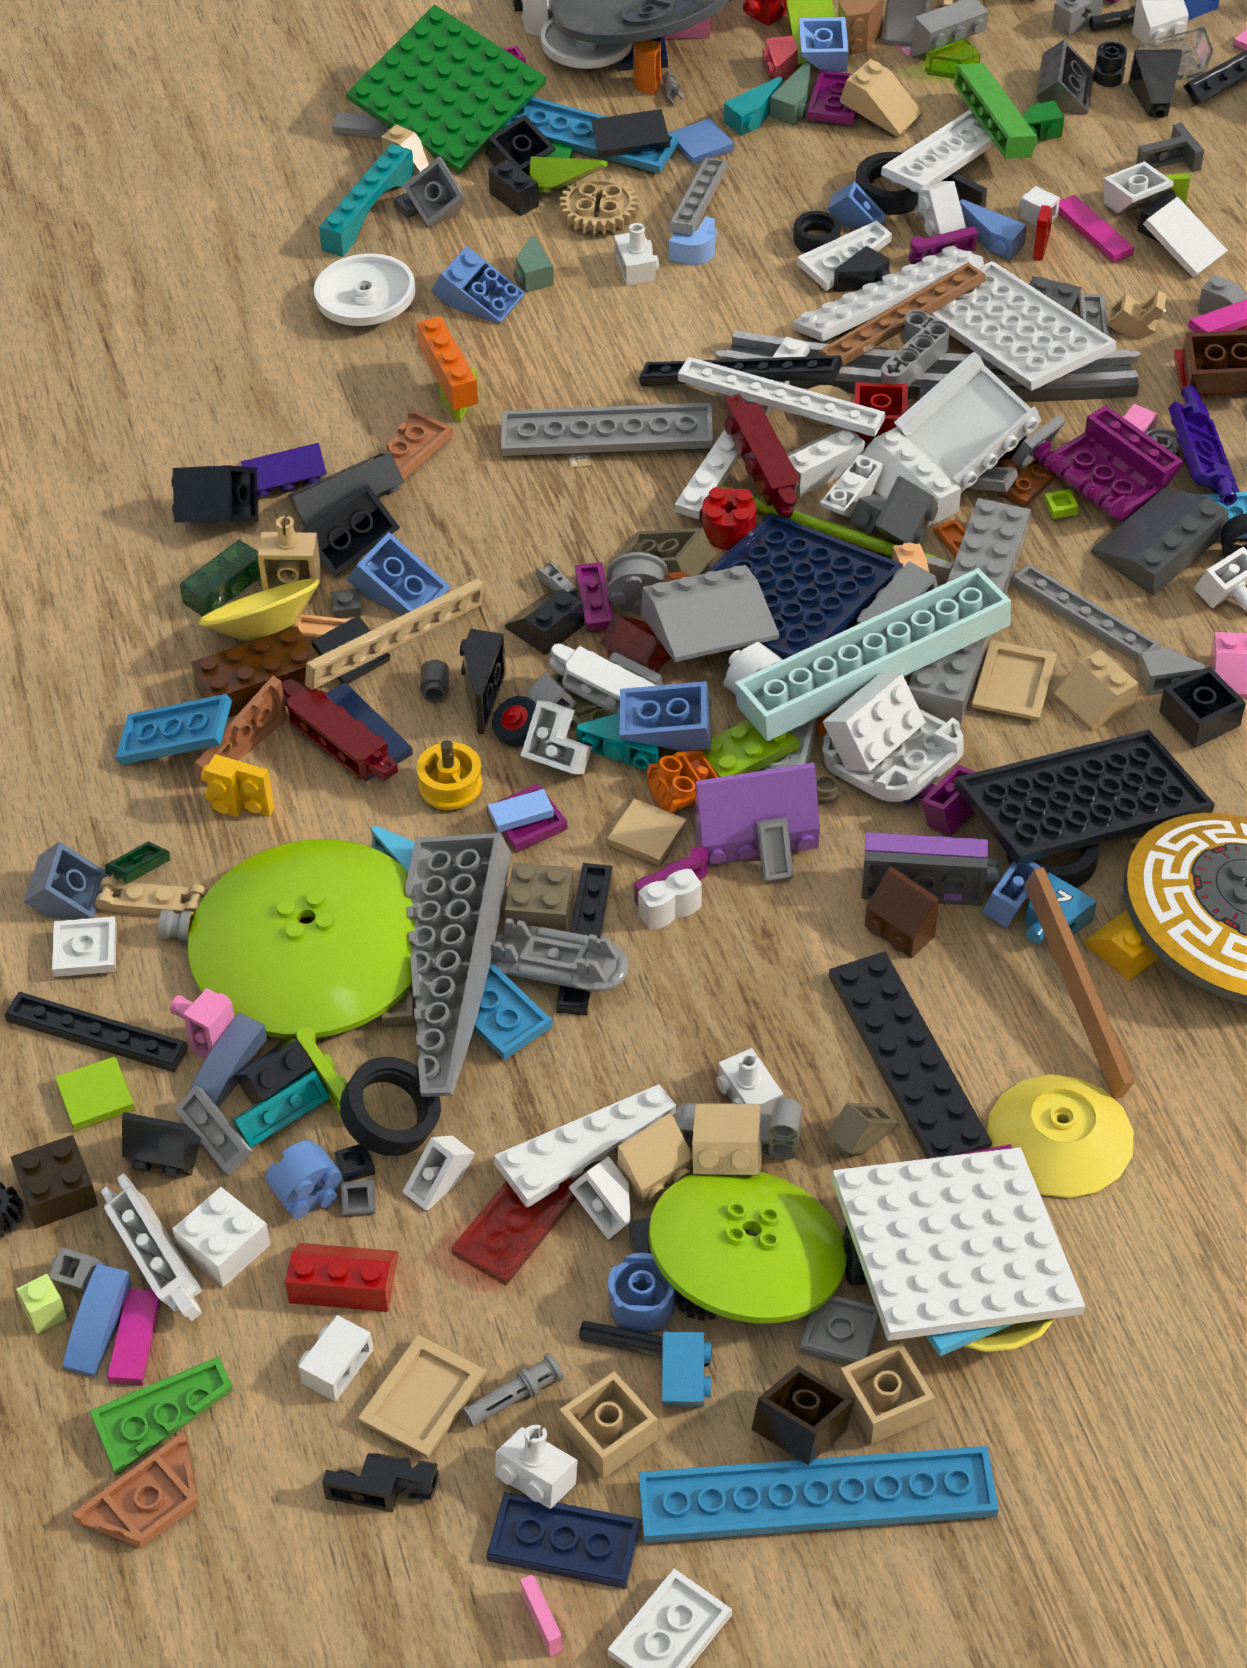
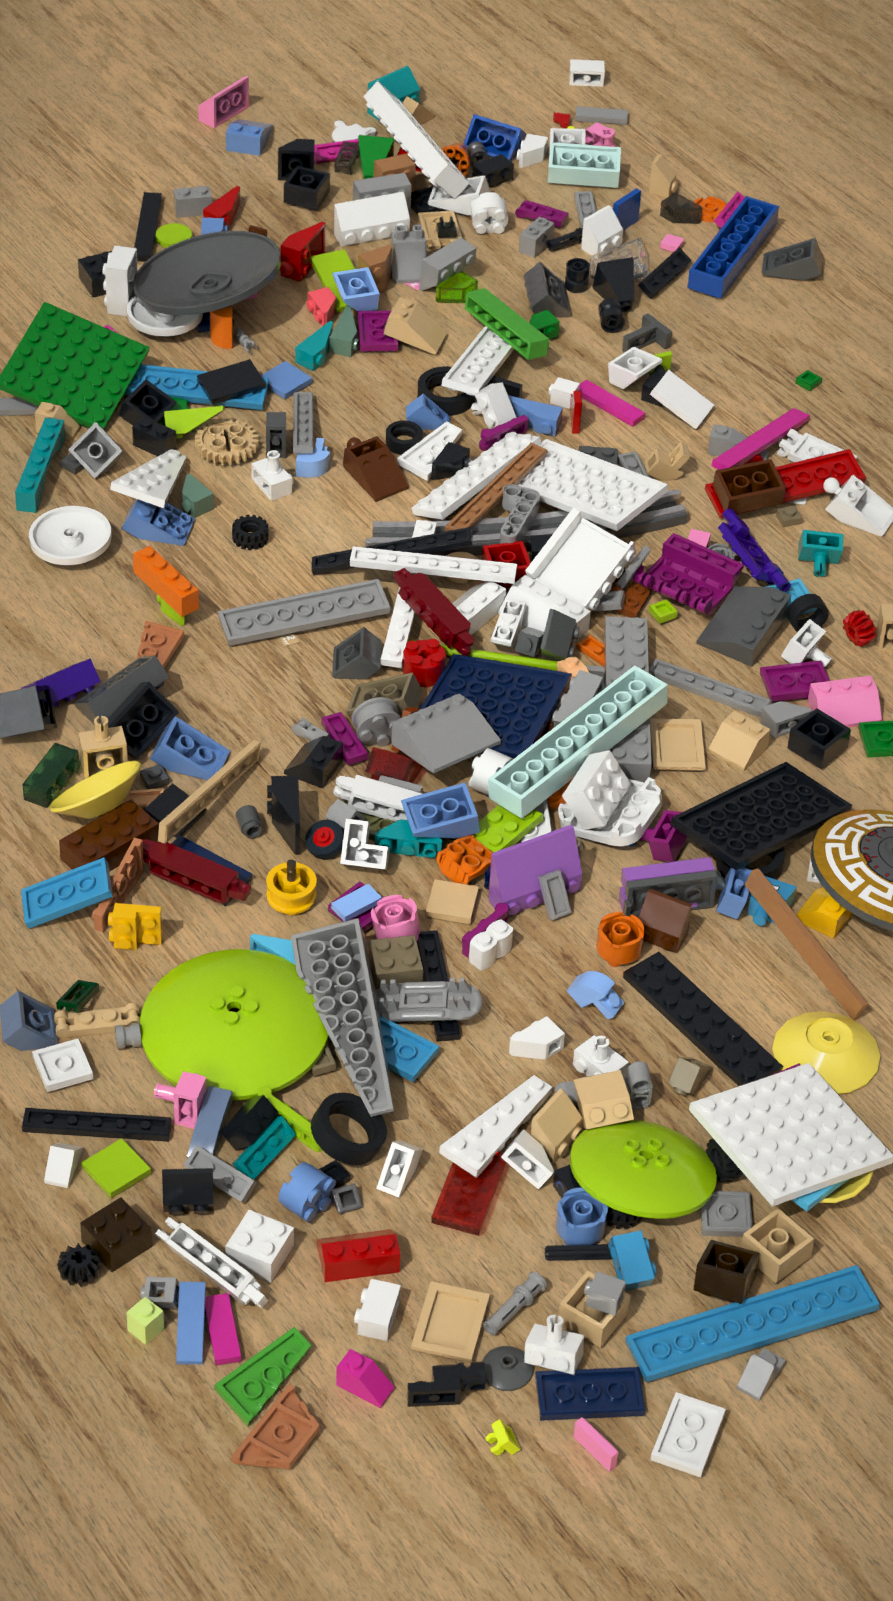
camera: 20 degrees left, 5 degrees down
(32, 1072) = (62, 1164): none -> white slope
(279, 1448) = (363, 1378): none -> dark pink slope
(425, 1575) = (505, 1439): none -> neon yellow tile
(467, 1490) = (505, 1376): none -> dark grey dish
(486, 237) = (152, 480): none -> white wing
(560, 841) = (395, 918): none -> bright pink brick
(593, 320) = (250, 524): none -> black tyre
(619, 1410) = (605, 1293): none -> light grey brick
(651, 495) = (357, 656): none -> dark grey slope
(657, 205) = (276, 433): none -> dark grey brick
(680, 1039) = (538, 1040): none -> white slope
(763, 264) = (374, 468): none -> reddish brown slope
(780, 986) = (596, 989): none -> light blue brick
(801, 1568) = (760, 1373): none -> slope
(838, 924) = (620, 938): none -> orange brick
(1135, 119) = (611, 315): none -> black wheel
(1195, 622) = (792, 680): none -> magenta plate

